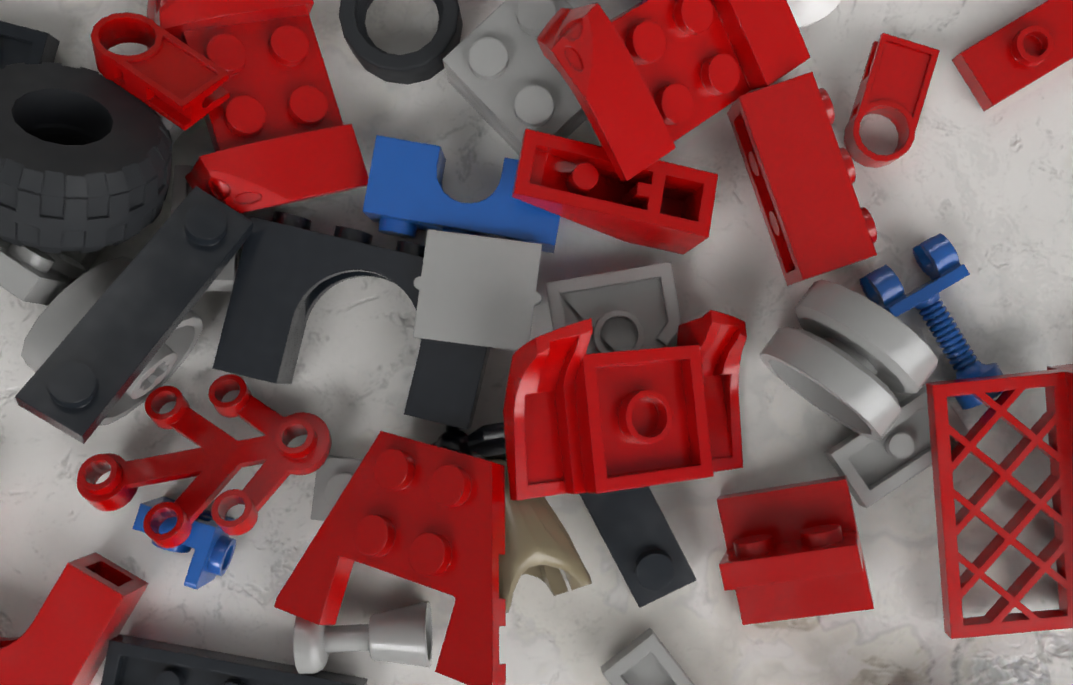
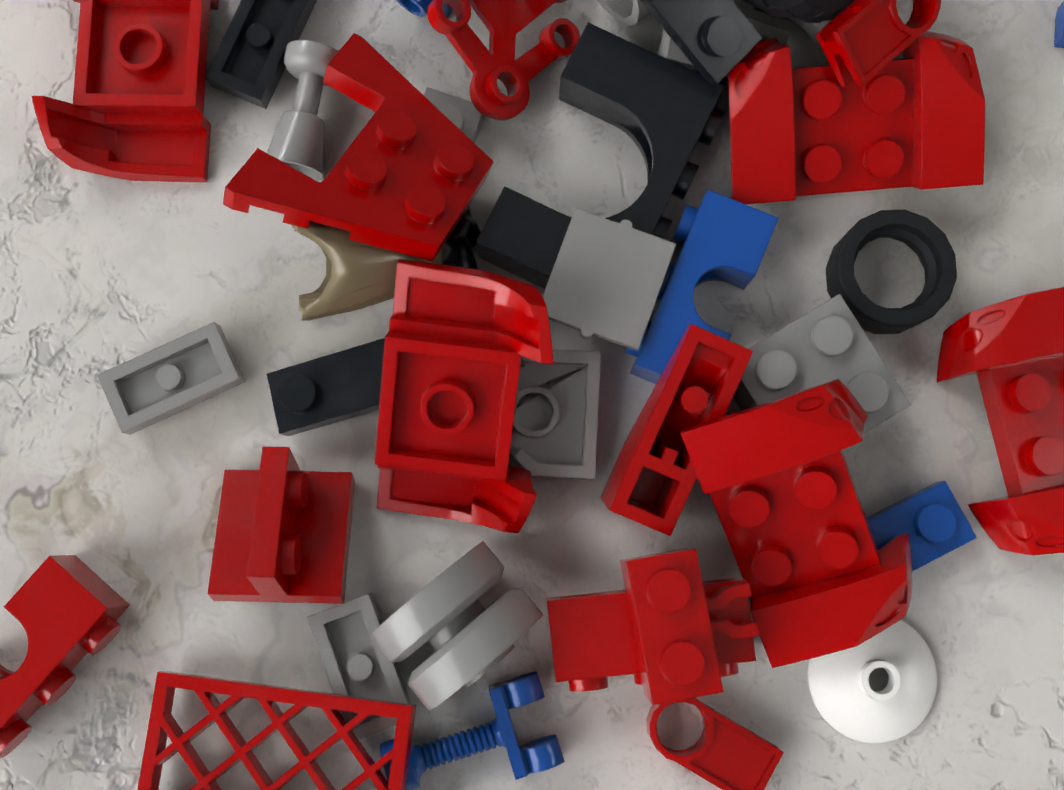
camera: 105 degrees right, 5 degrees down
(807, 150) = (674, 624): none -> red brick

